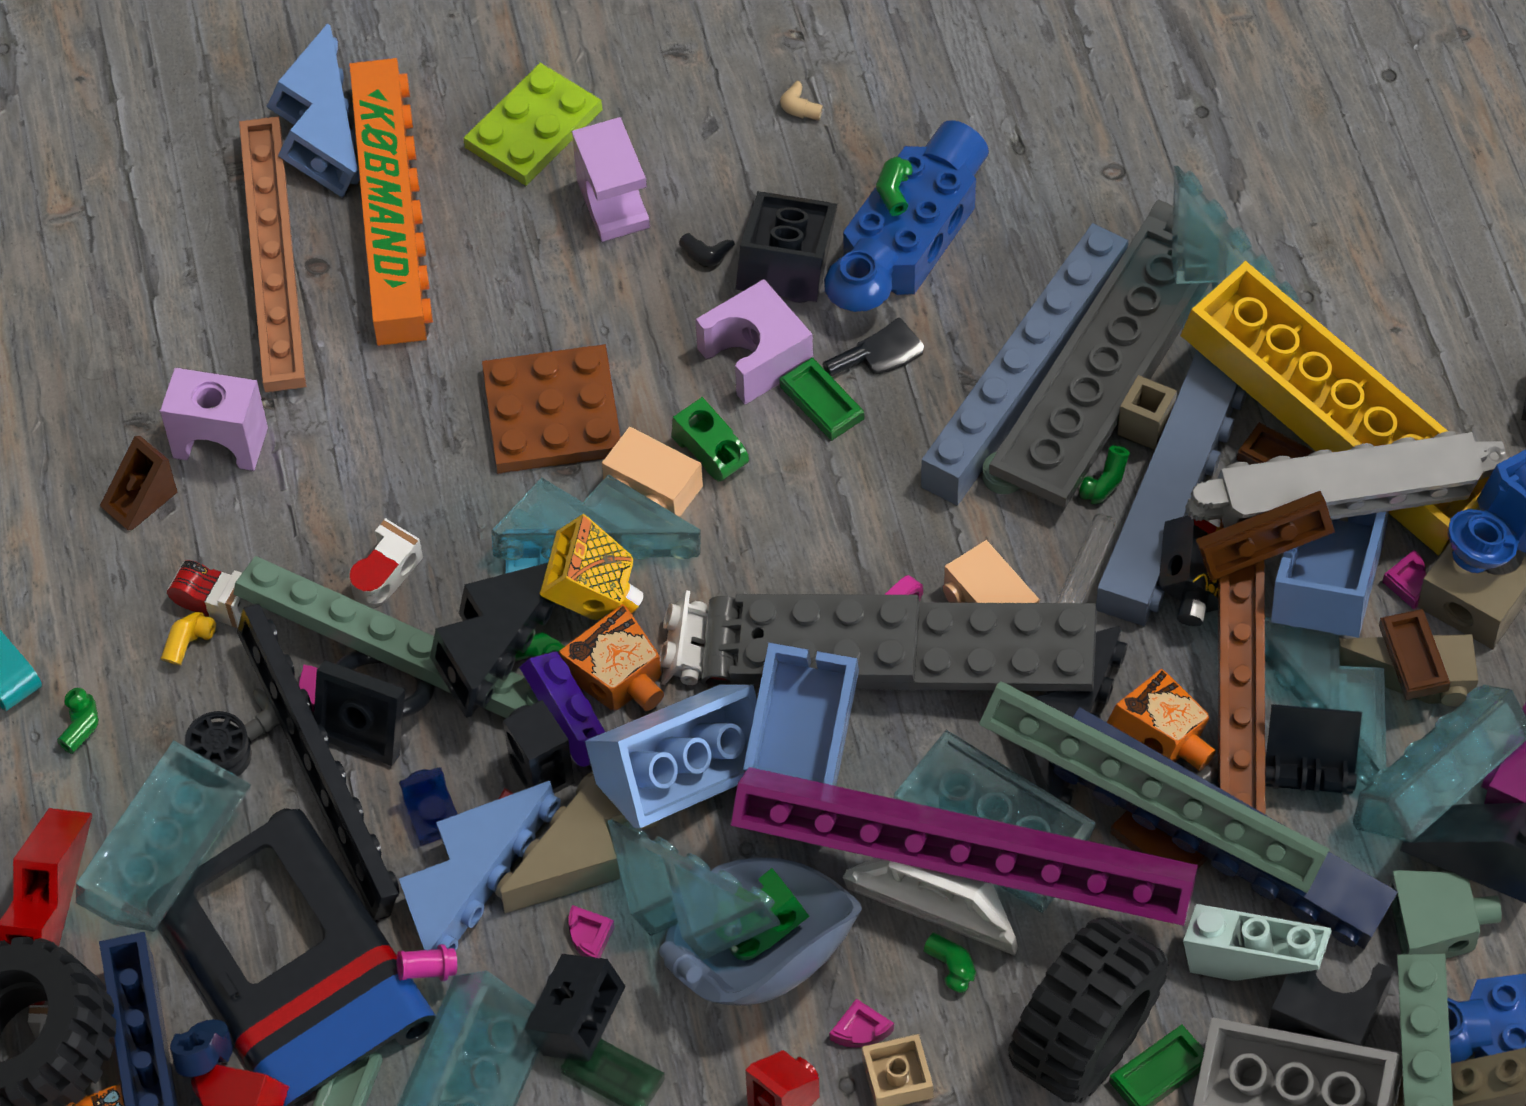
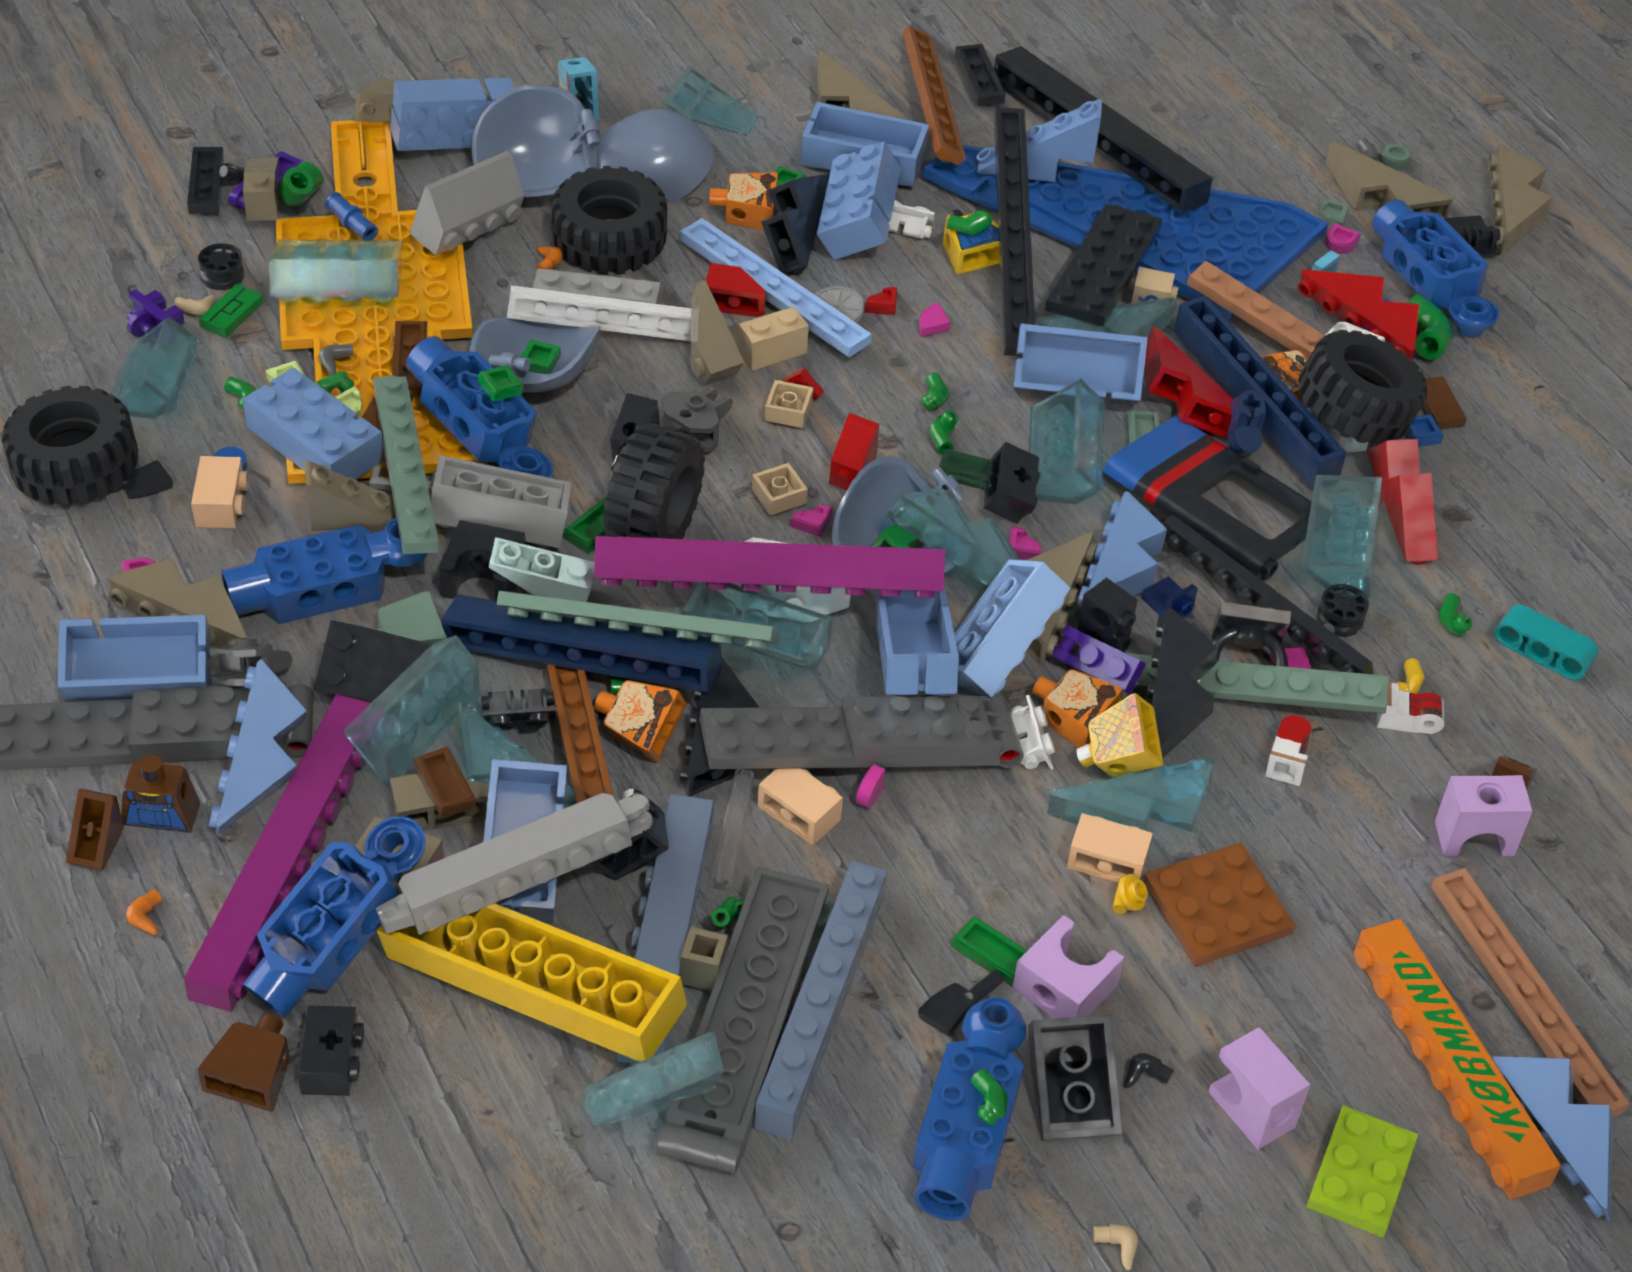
camera: 160 degrees right, 10 degrees down
(427, 963) = (1122, 482): dark pink pin -> none
(651, 423) = (1130, 894): none -> yellow plate
(709, 439) = (1075, 886): green leg -> none
(1265, 535) = (617, 786): reddish brown tile -> none

